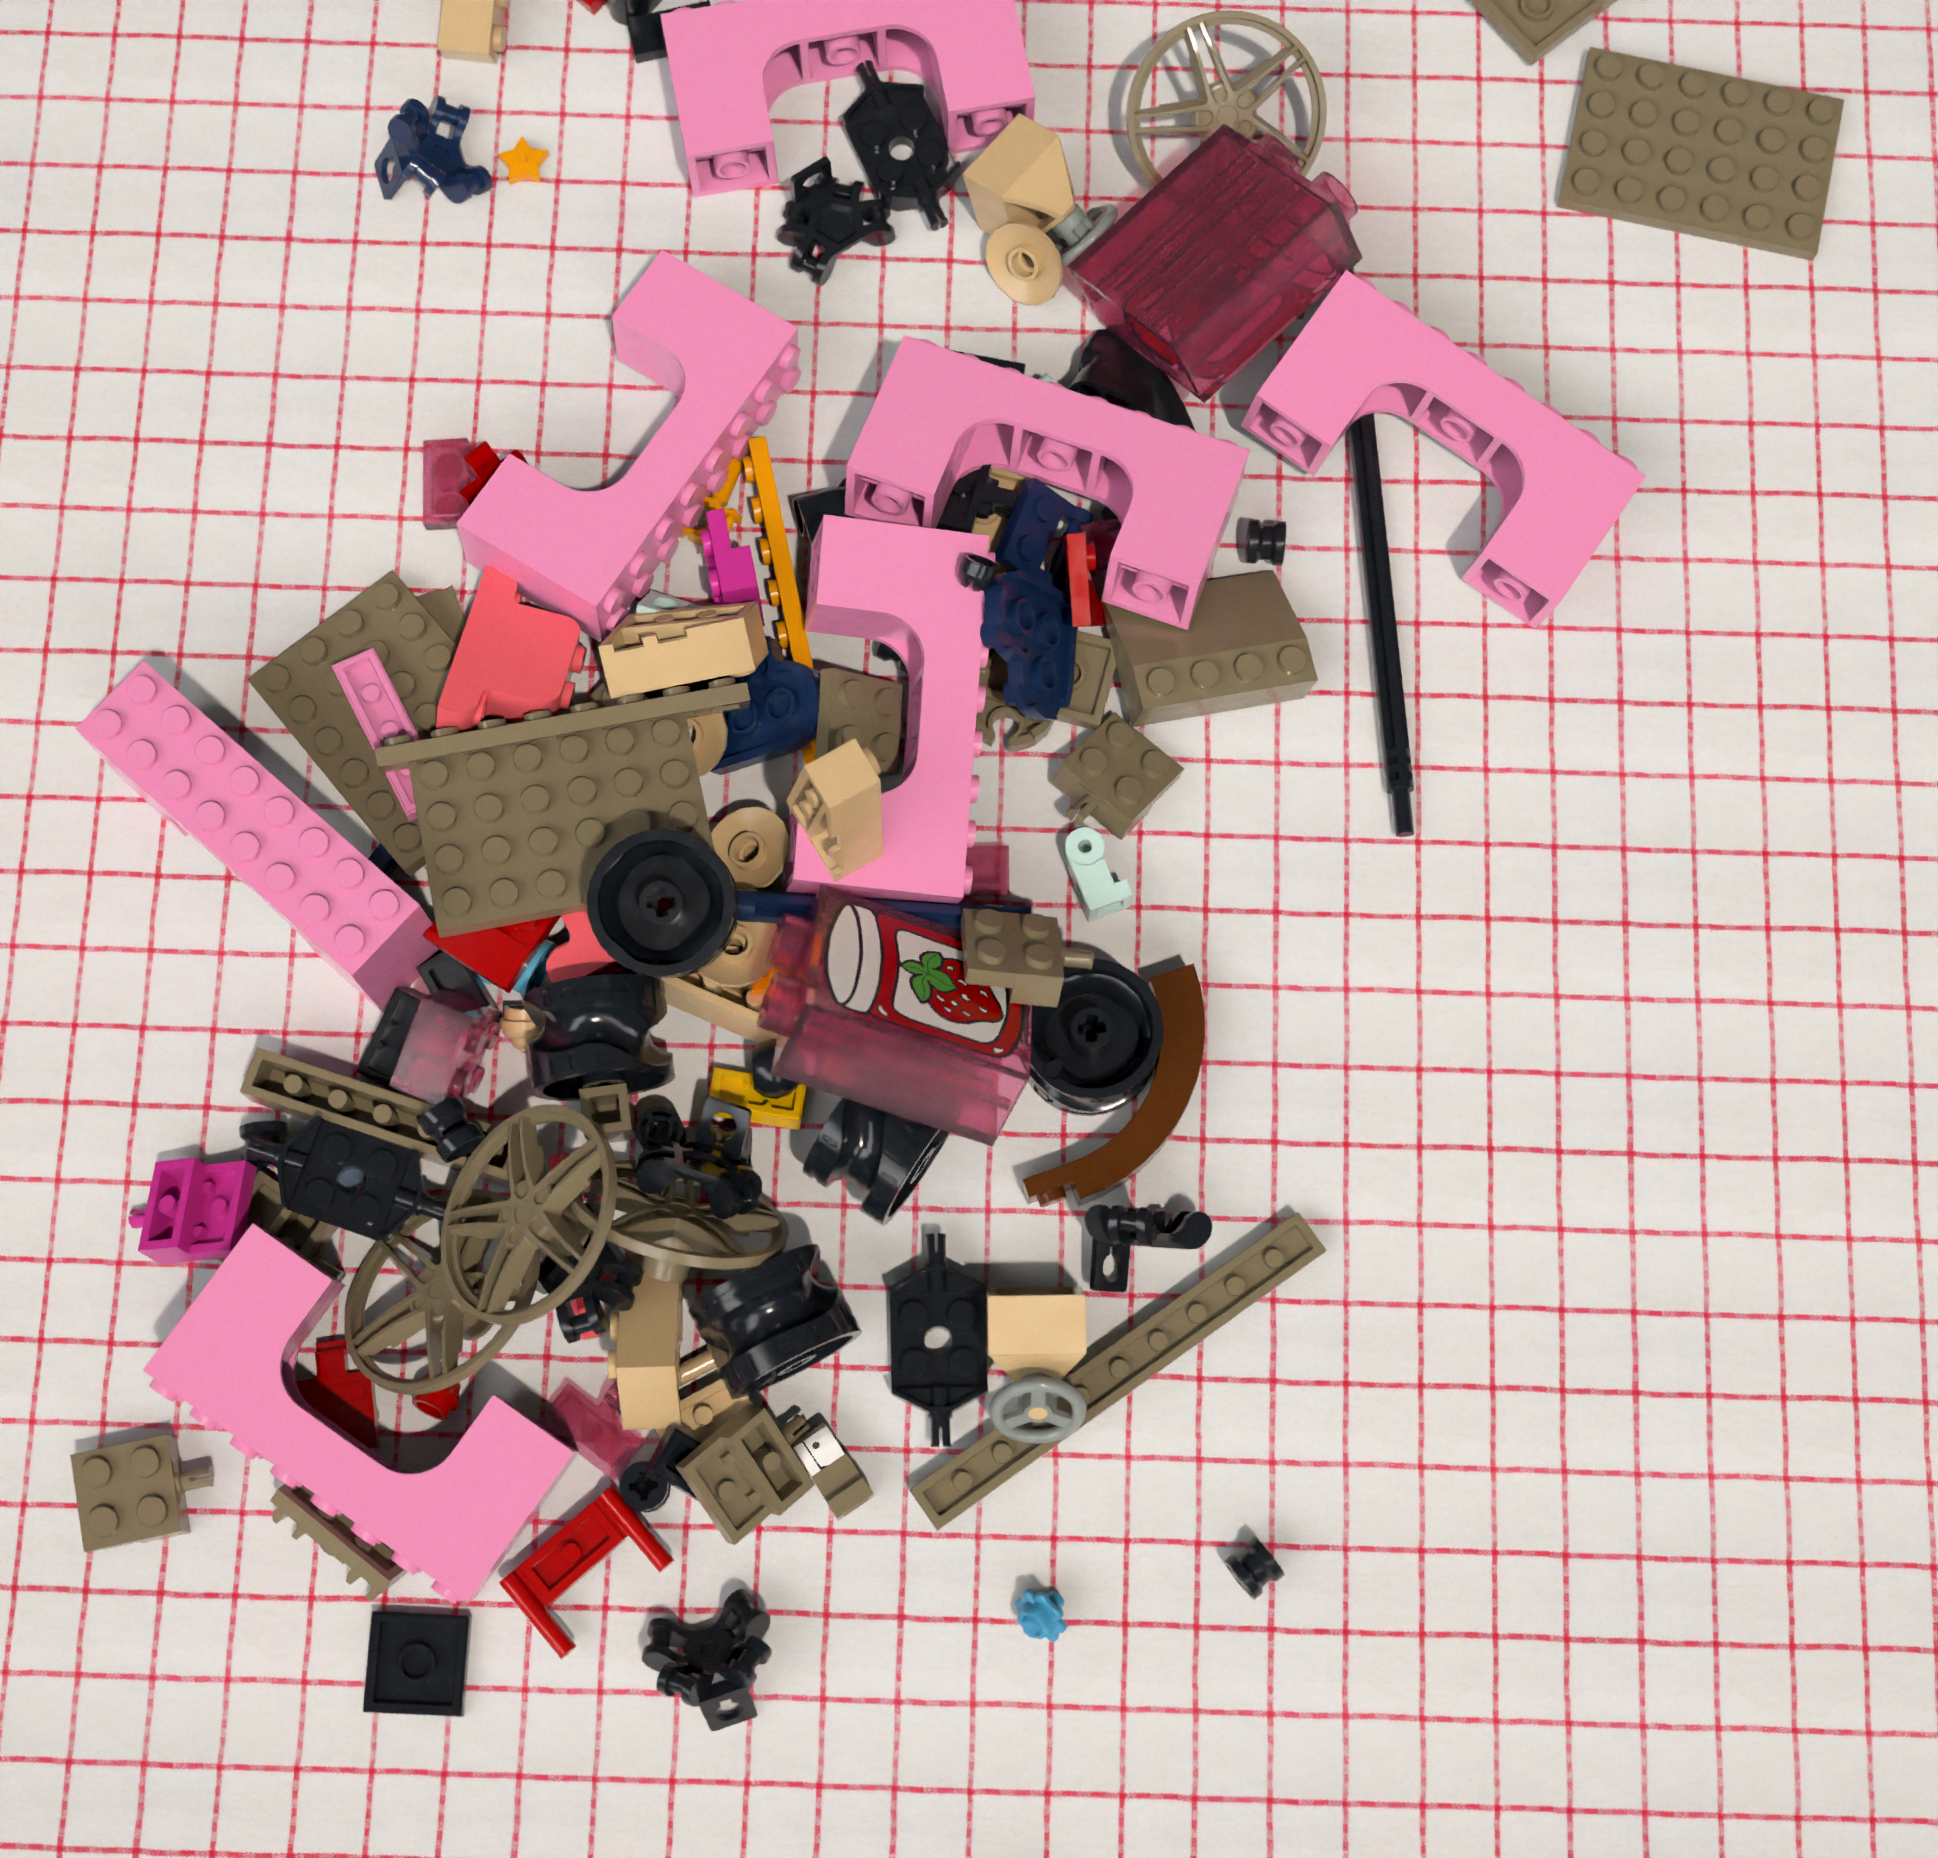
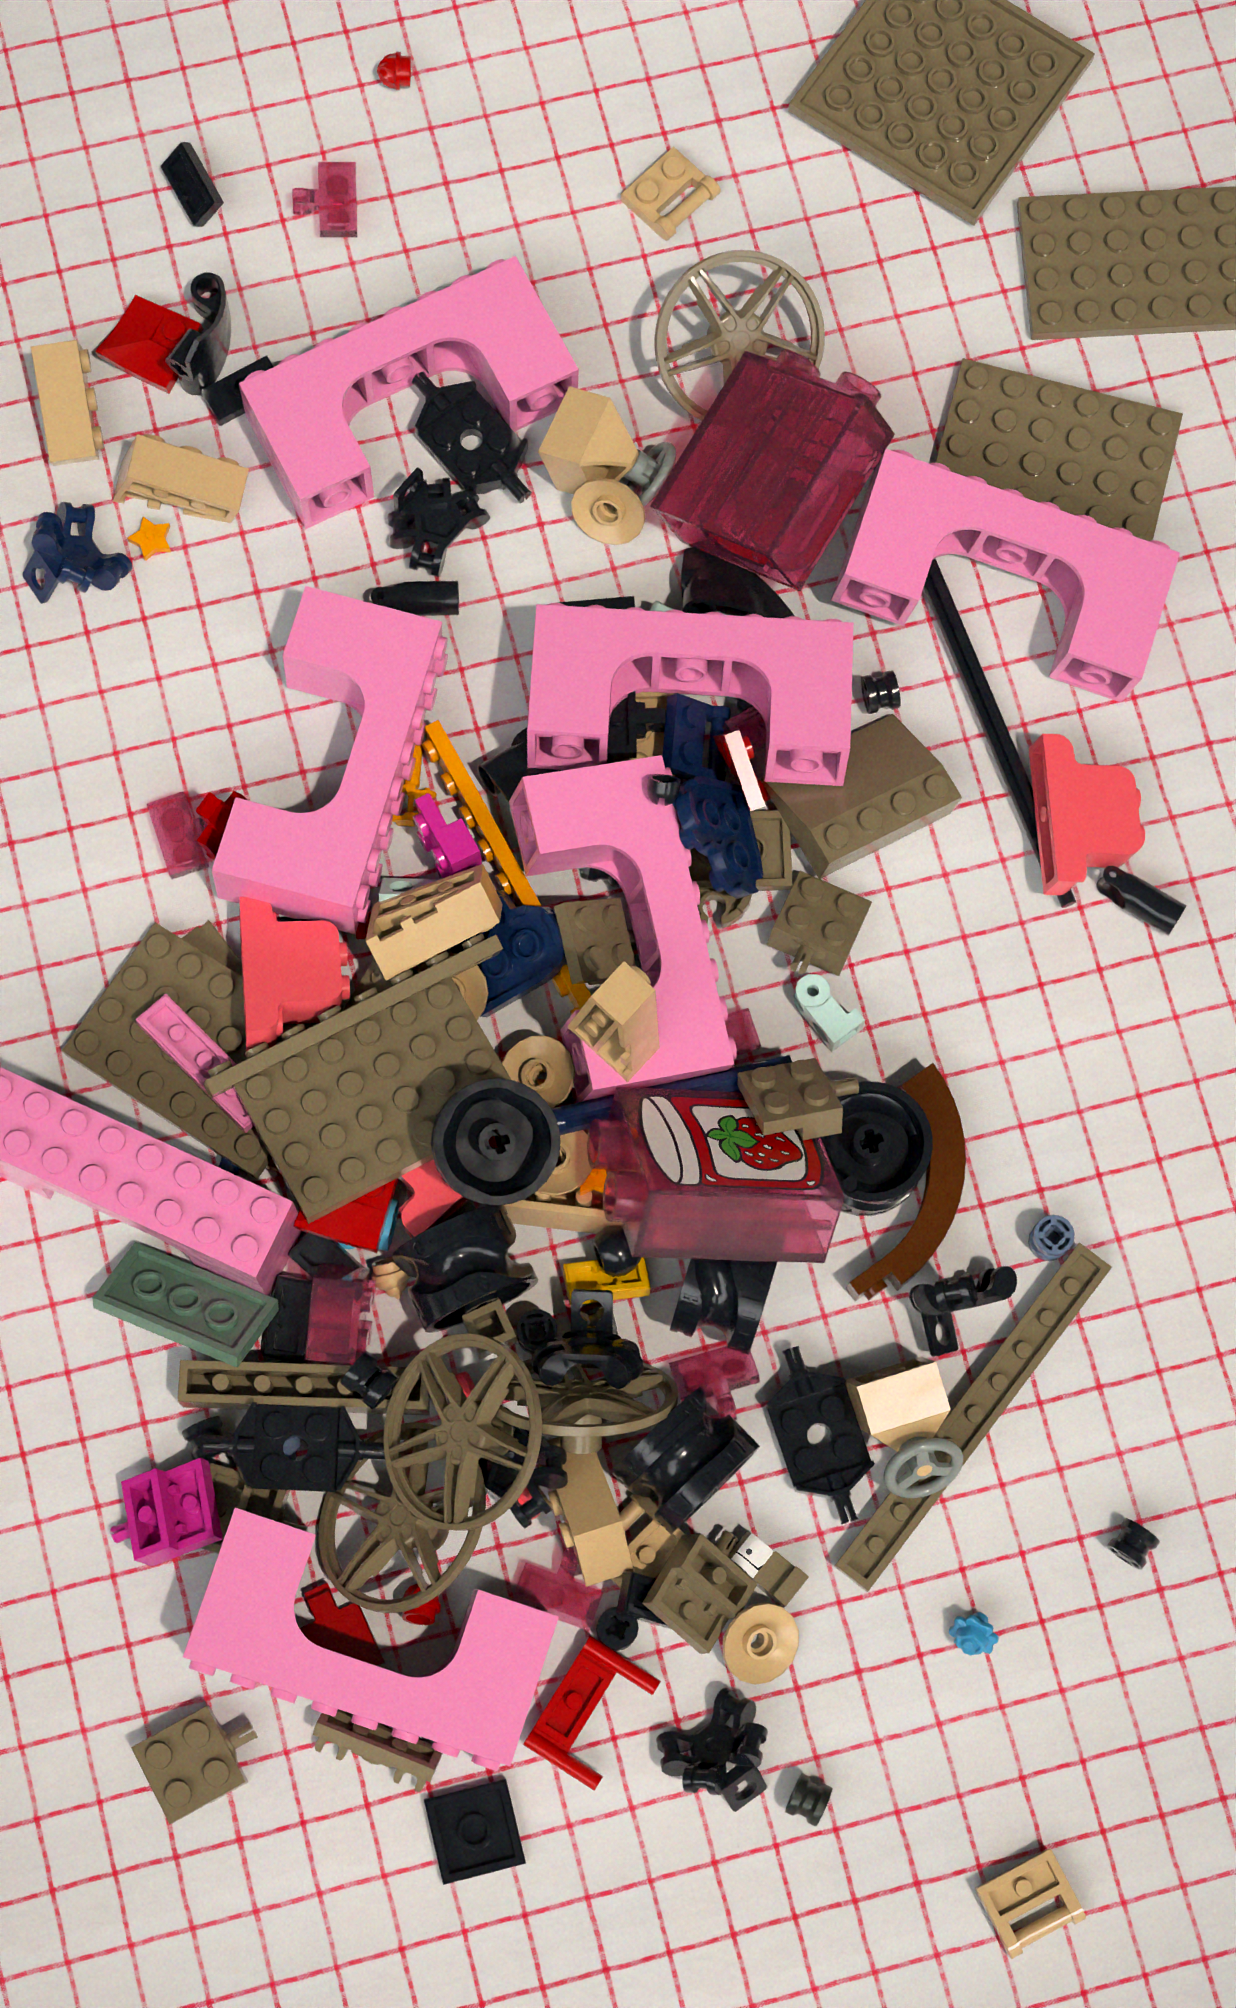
camera: 20 degrees left, 0 degrees up
(286, 989) = (186, 1304): none -> sand green plate
(572, 104) = (181, 478): none -> tan wedge
(792, 302) = (420, 597): none -> black piece
(796, 1743) = (808, 1799): none -> pearl dark grey wheel
(805, 1568) = (770, 1653): none -> tan dish
(842, 1239) = (718, 1373): none -> clear pink plate
(1265, 1206) = (1046, 1243): none -> sand blue wheel
(1448, 737) = (1081, 814): none -> coral brick
(1489, 851) = (1141, 899): none -> black piece
(1555, 328) = (1061, 445): none -> dark tan plate

